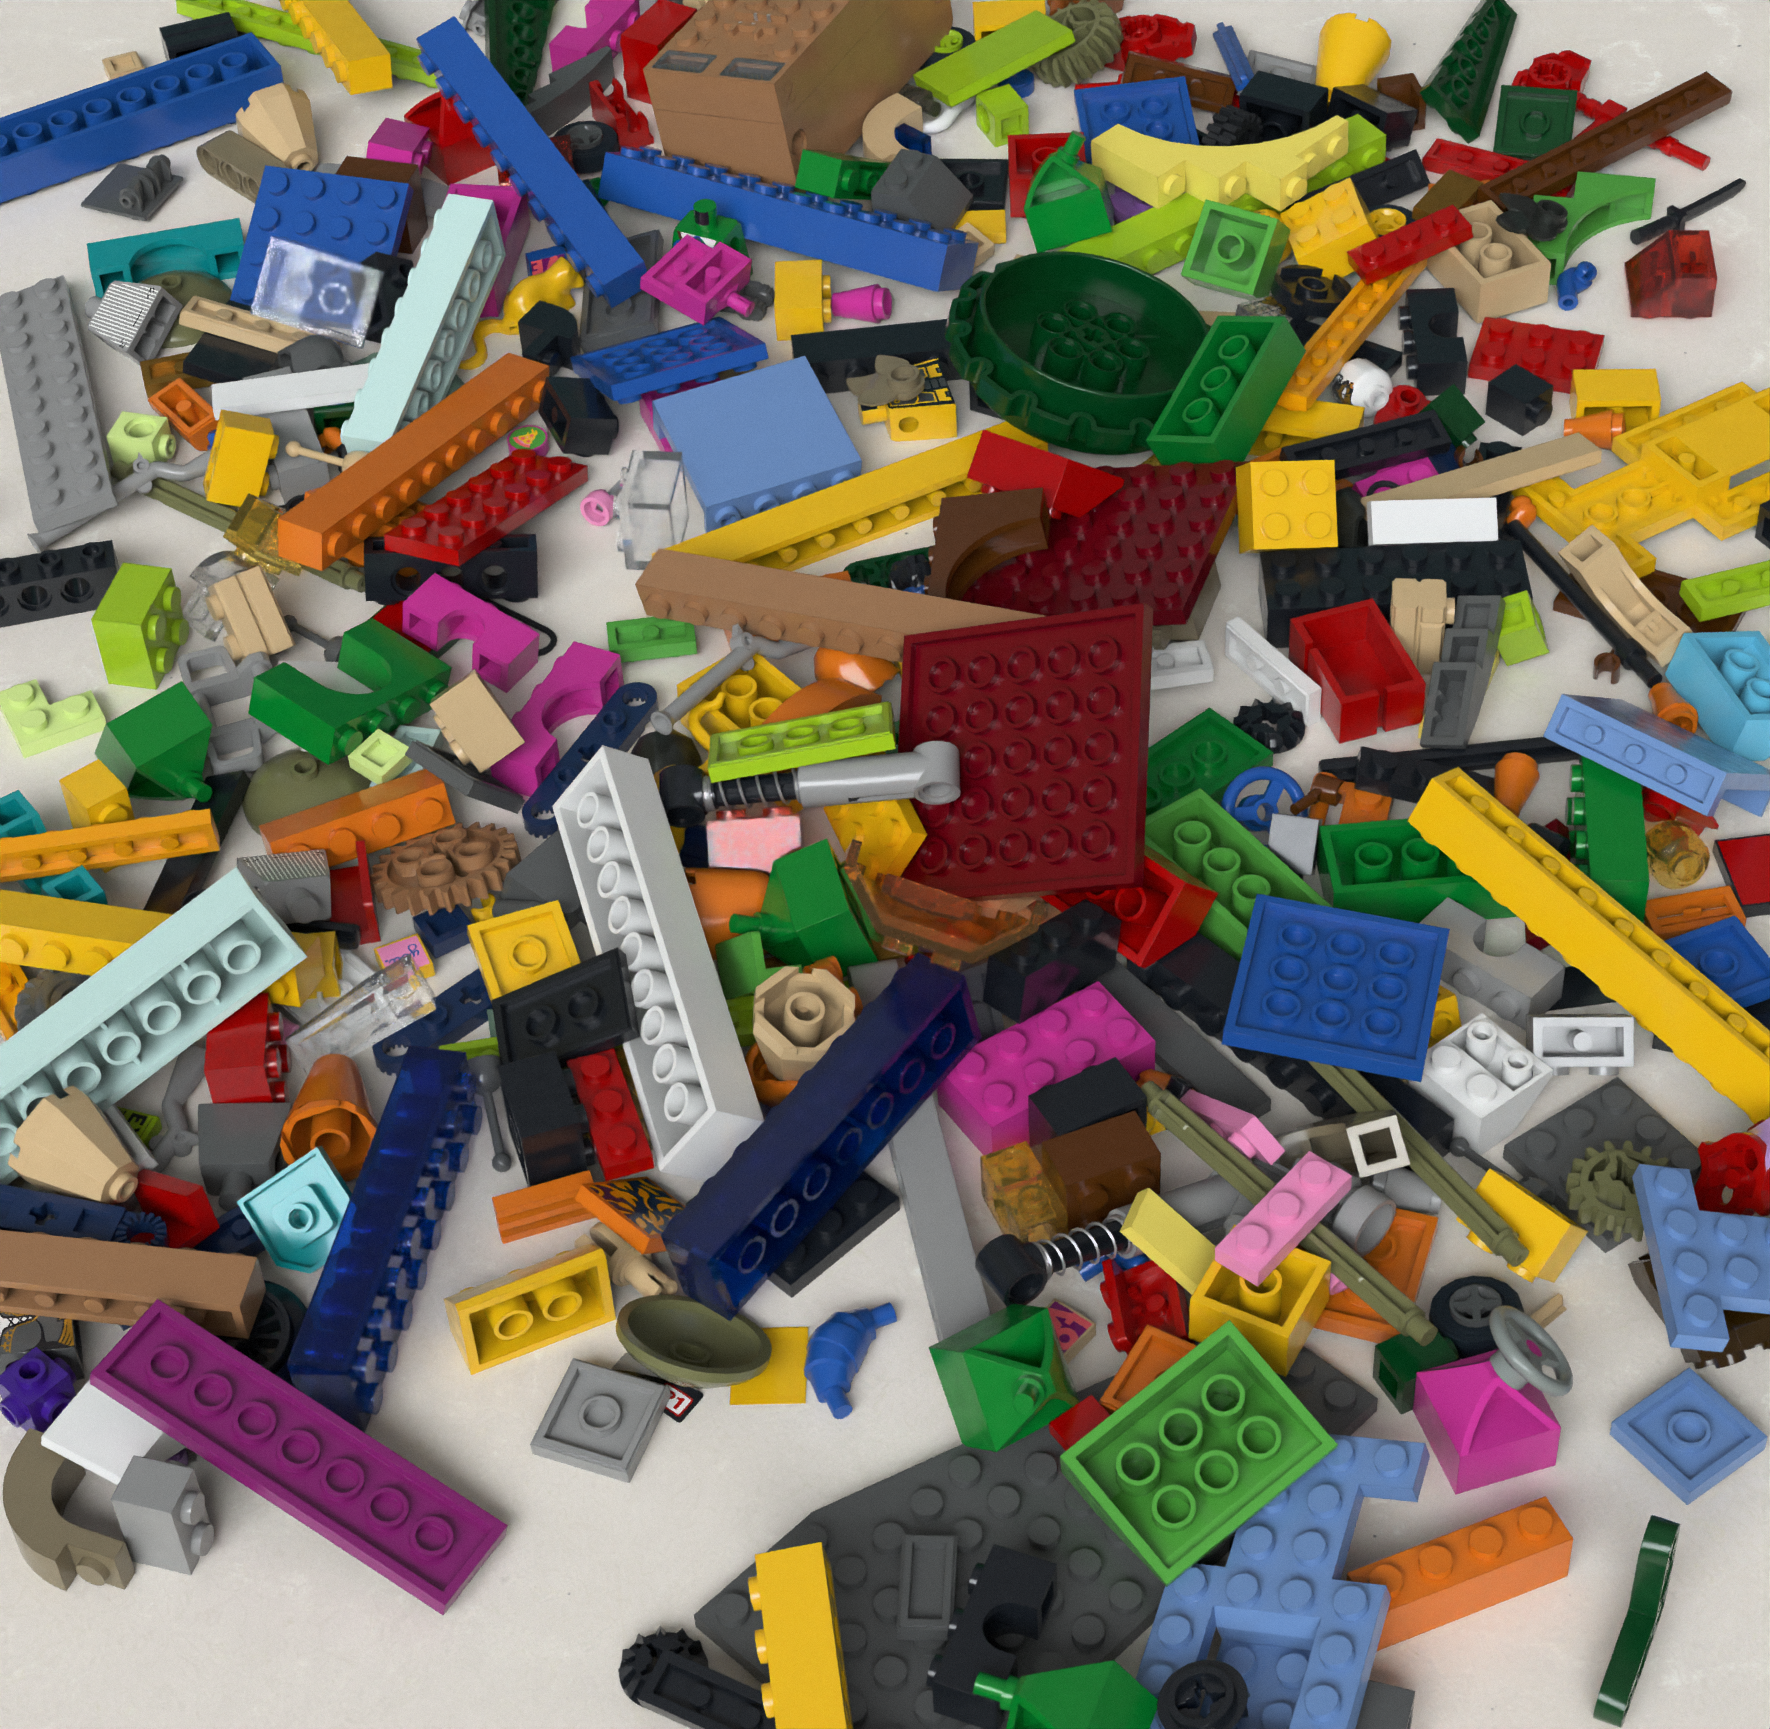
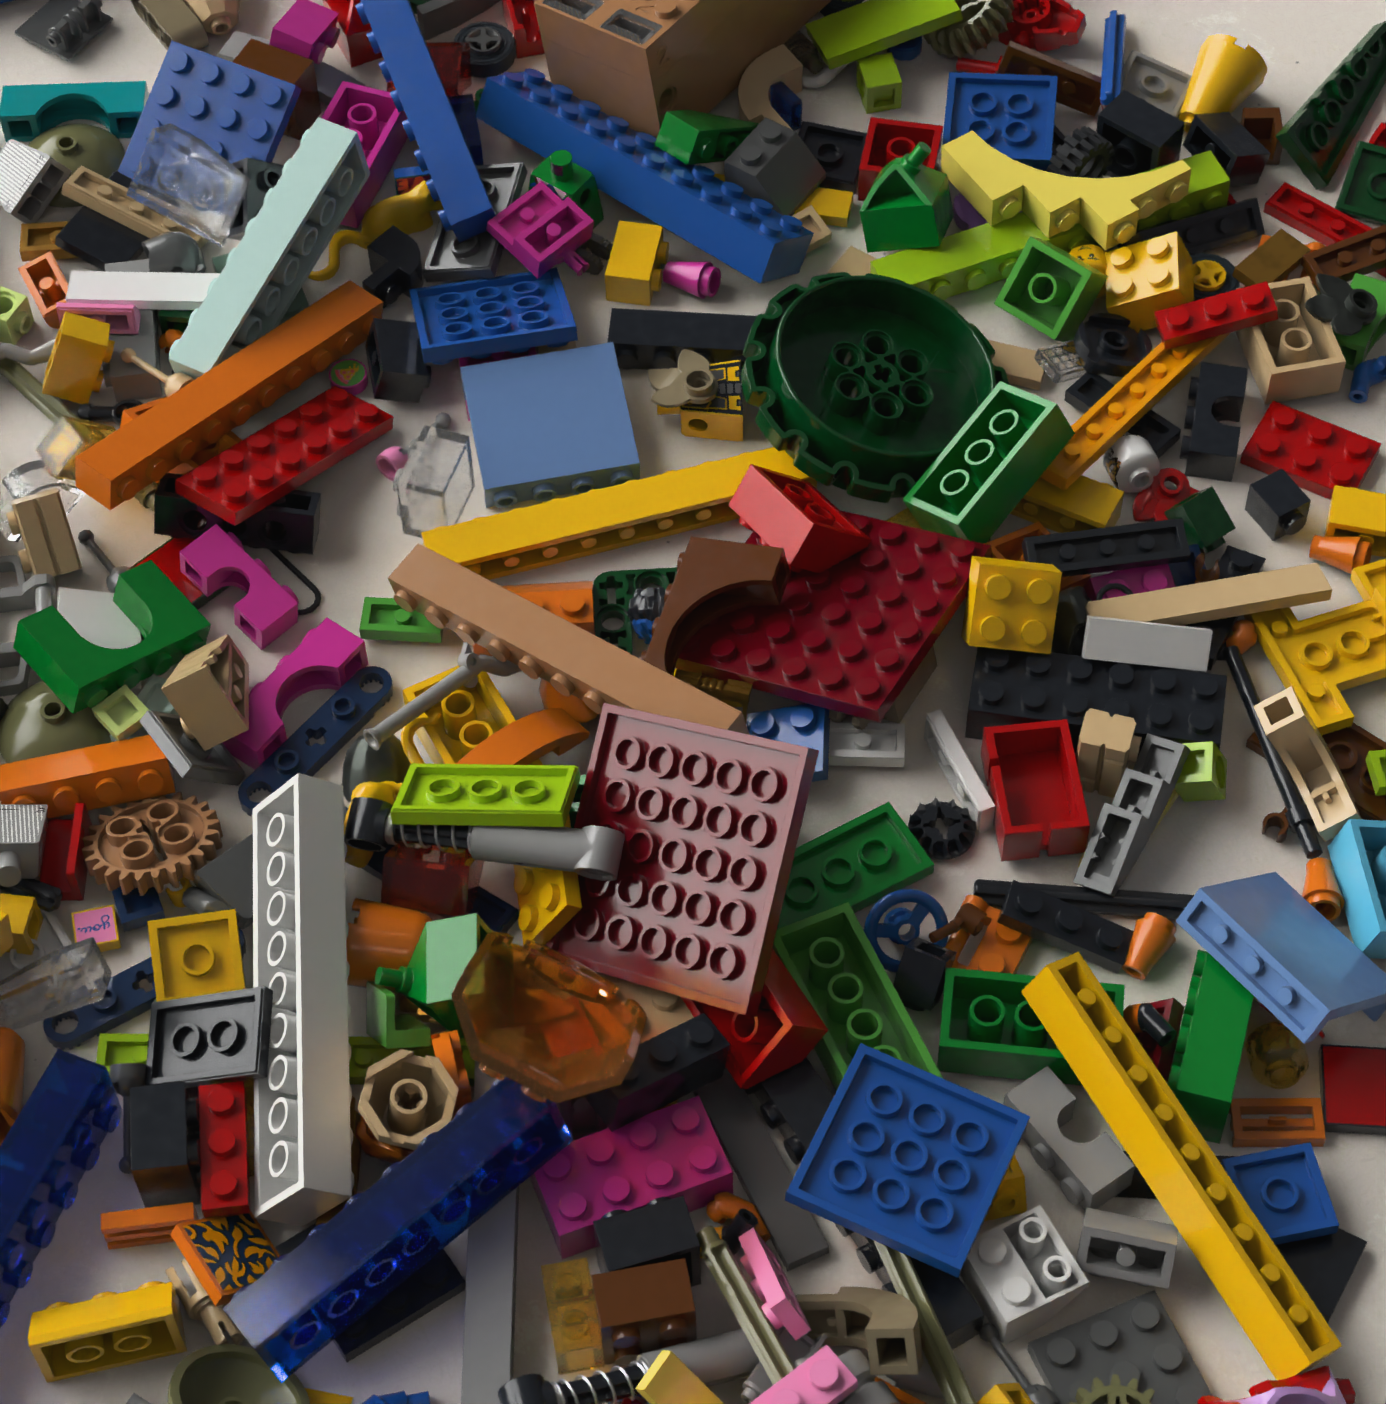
camera: 10 degrees right, 10 degrees up
(278, 410) = (121, 317): none -> bright pink slope

